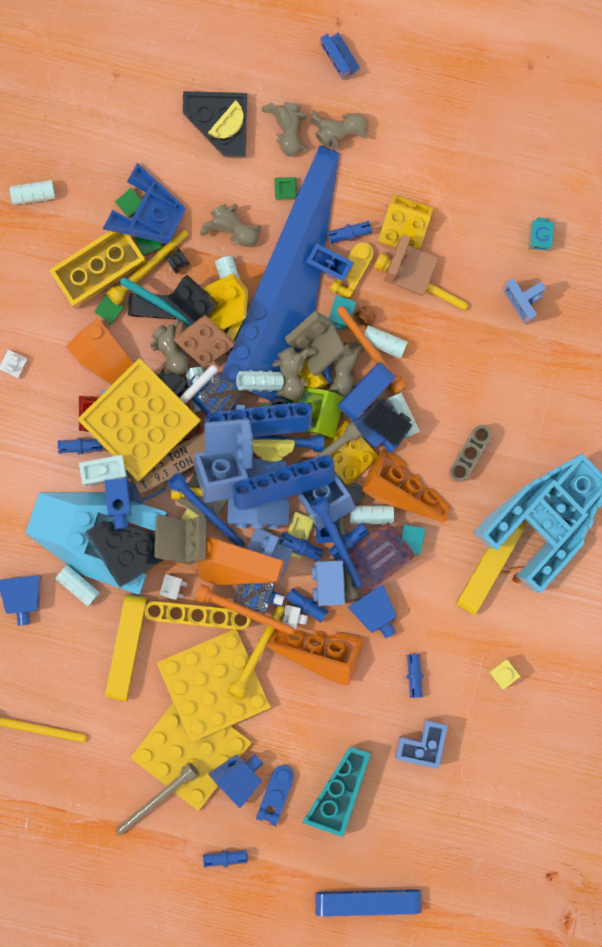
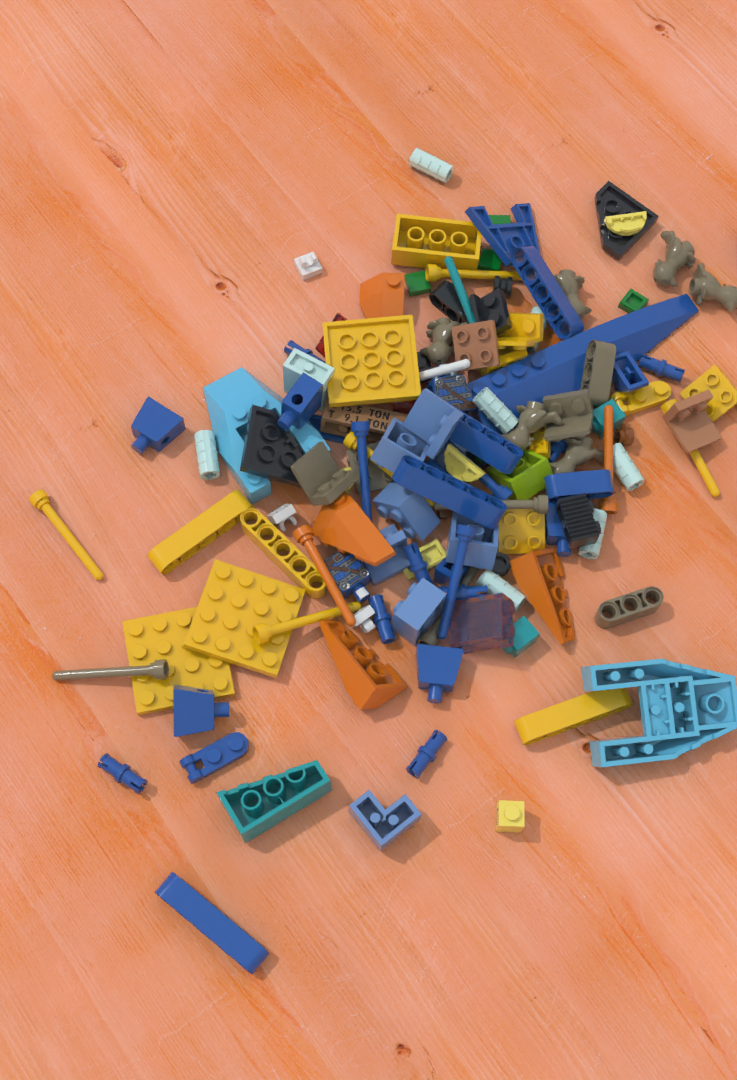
camera: 35 degrees right, 20 degrees down
(217, 244) = (554, 297): none -> blue beam
(309, 282) = (598, 371): none -> dark tan beam

